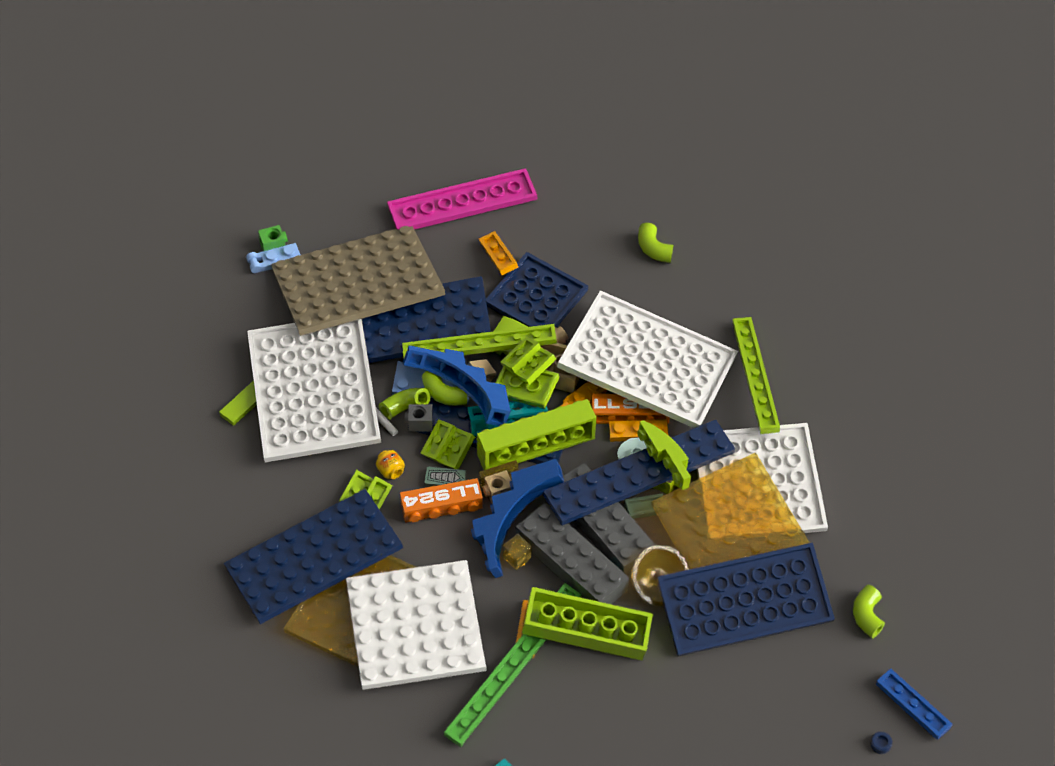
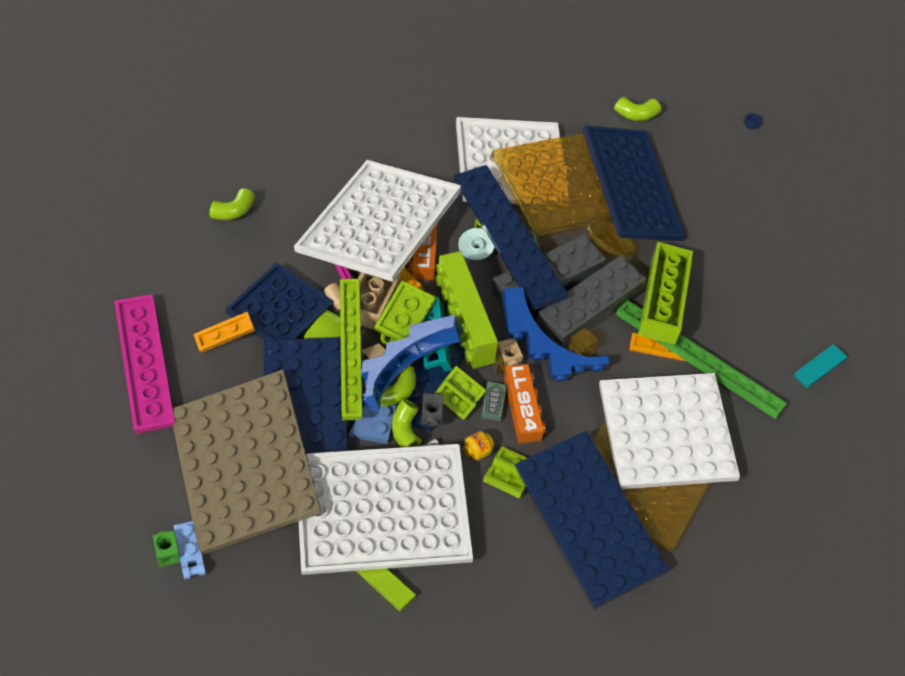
camera: 90 degrees left, 0 degrees up
(528, 360) = (383, 303): lime slope -> none
(628, 429) = (446, 238): light orange plate -> none
(666, 449) = (496, 205): lime slope -> none
(756, 376) = (400, 146): lime plate -> none
(914, 704) = (719, 95): blue plate -> none

